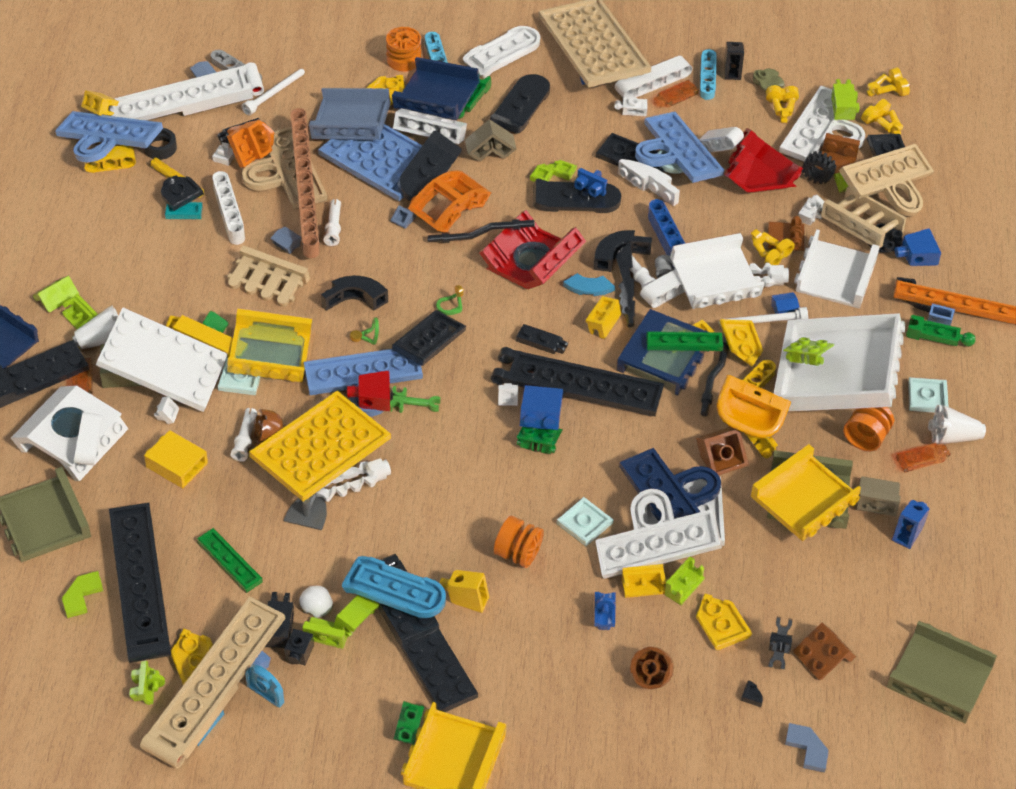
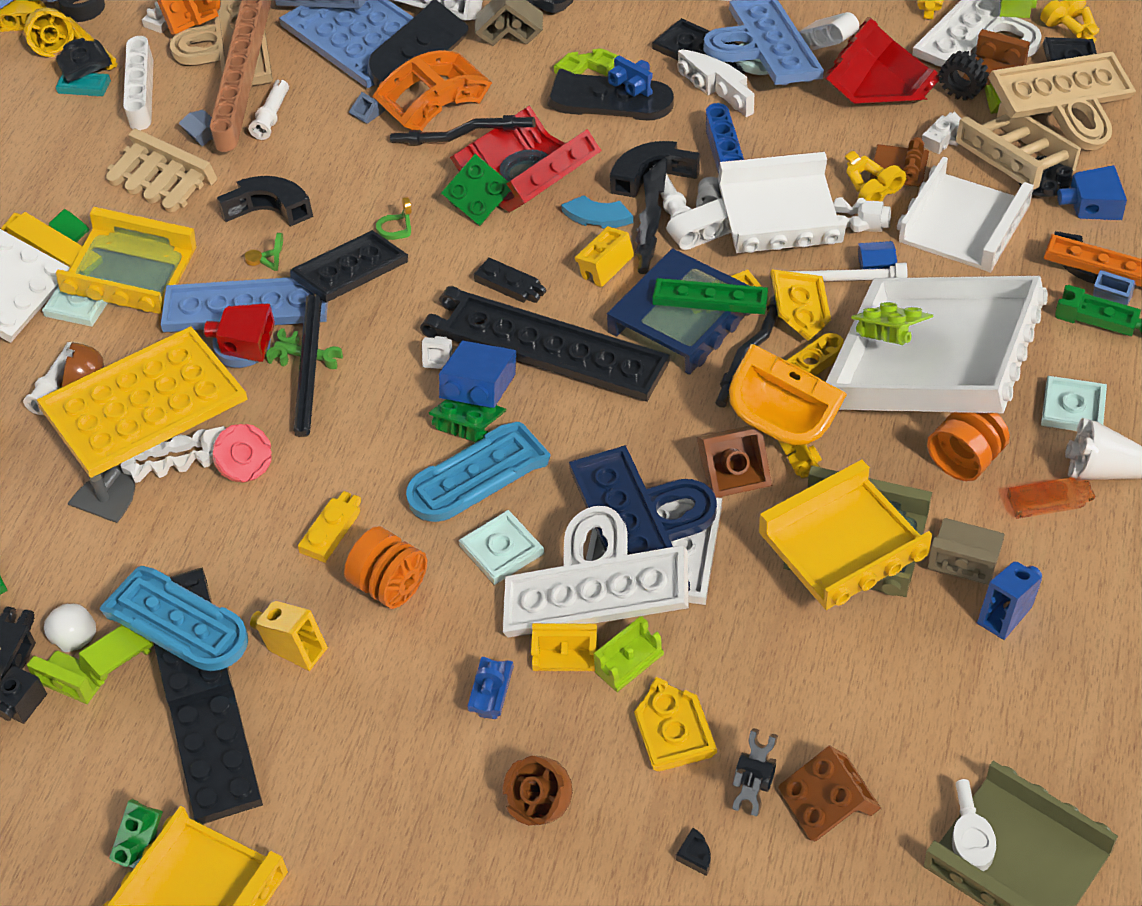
camera: 15 degrees right, 0 degrees up
(147, 171) = (47, 31): none -> yellow cylinder
(397, 475) = (242, 453): none -> coral tile
(422, 413) = (307, 366): none -> black axle
(468, 519) = (330, 527): none -> yellow hinge
(504, 275) = (477, 190): none -> green hinge
(555, 474) = (475, 472): none -> dark azure piece
(913, 664) = (972, 834): none -> white piece

